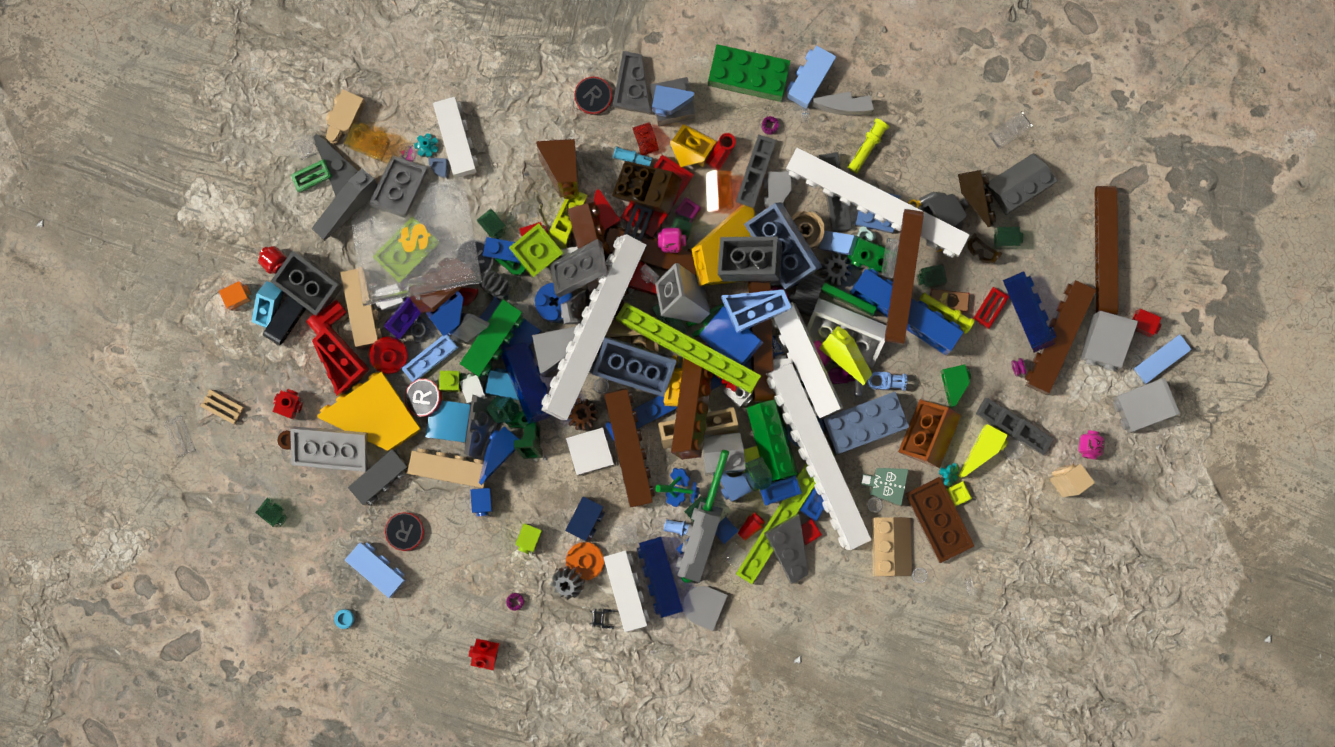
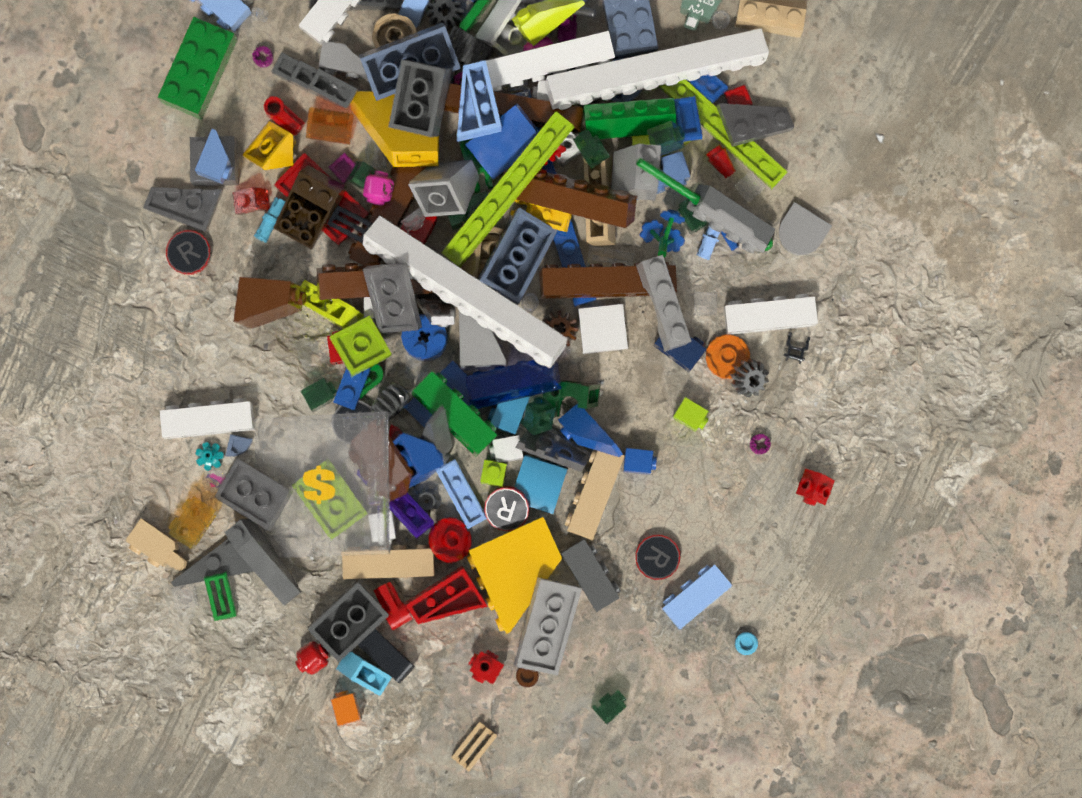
camera: 75 degrees left, 0 degrees up
(607, 217) = (334, 256): red slope -> none
(616, 497) = (670, 319): none -> light grey arch
(660, 576) = (761, 272): clear blue brick -> none
(725, 530) = (724, 186): blue brick -> none
(737, 411) = (591, 148): none -> clear green brick

